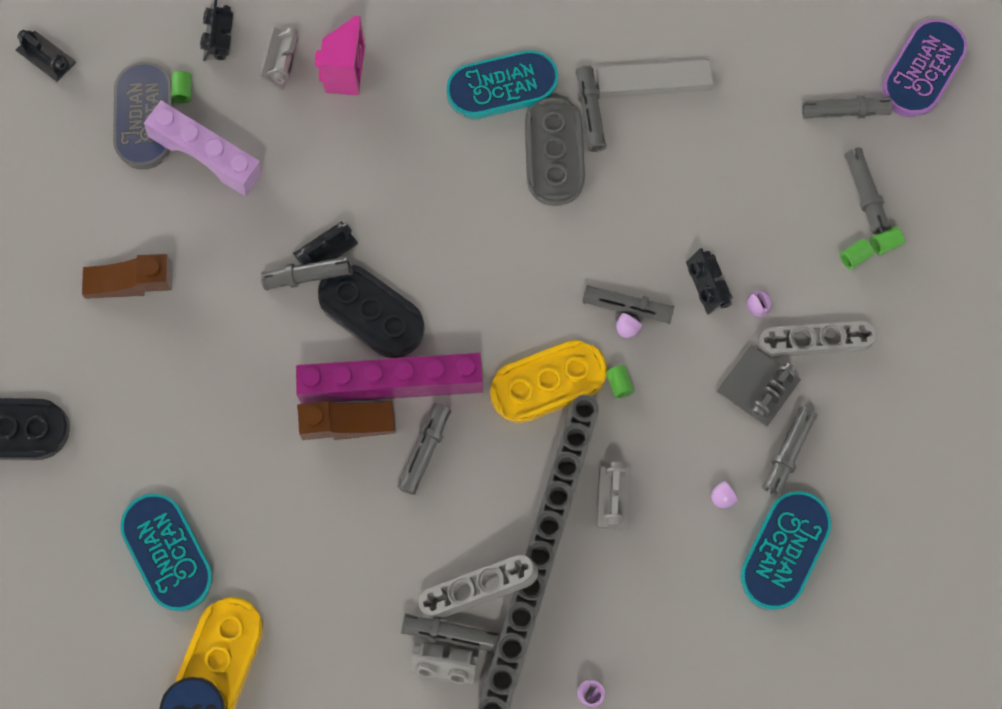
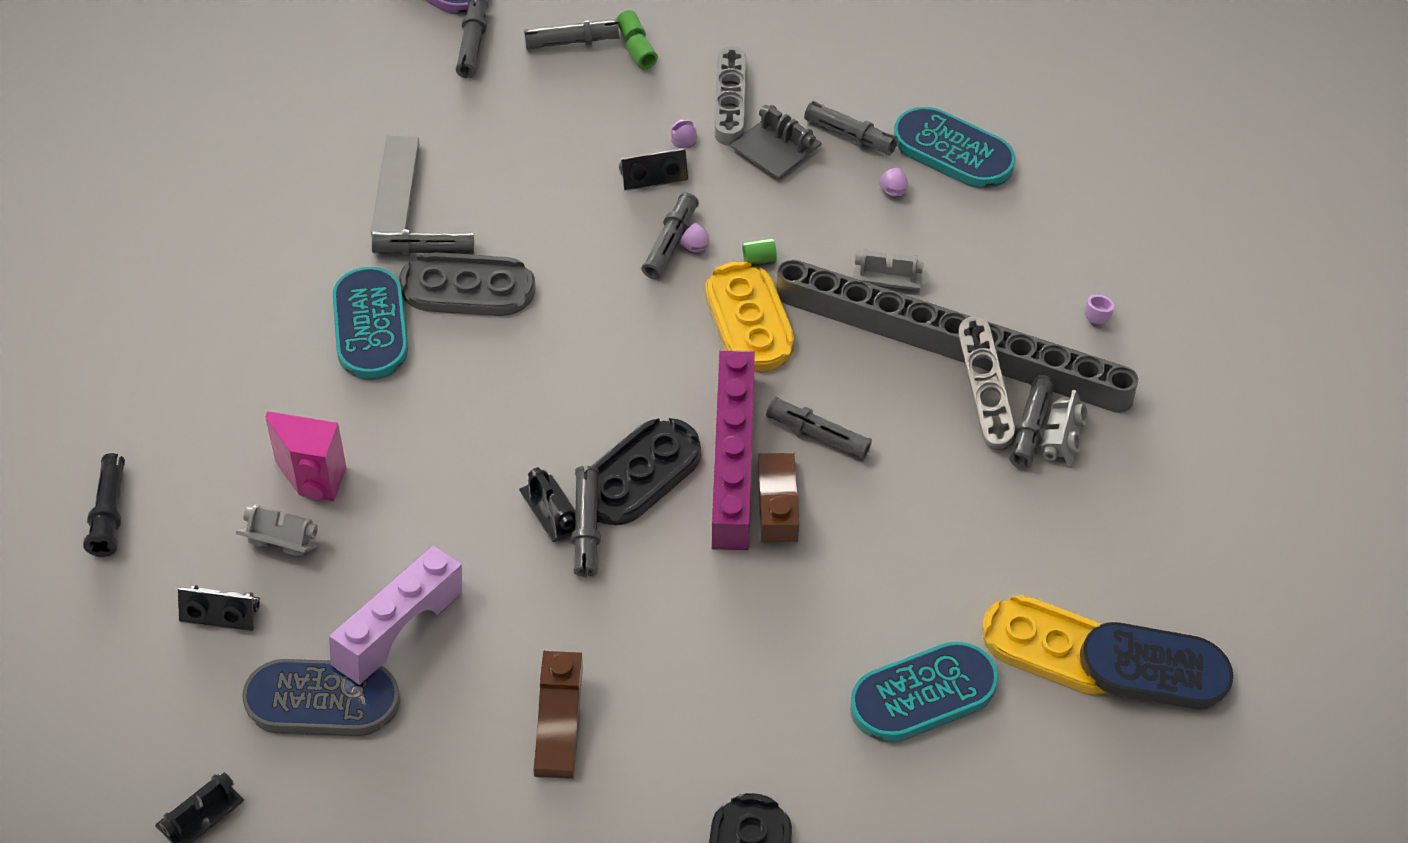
camera: 85 degrees left, 20 degrees down
(181, 87) = (291, 647): bright green hinge -> none

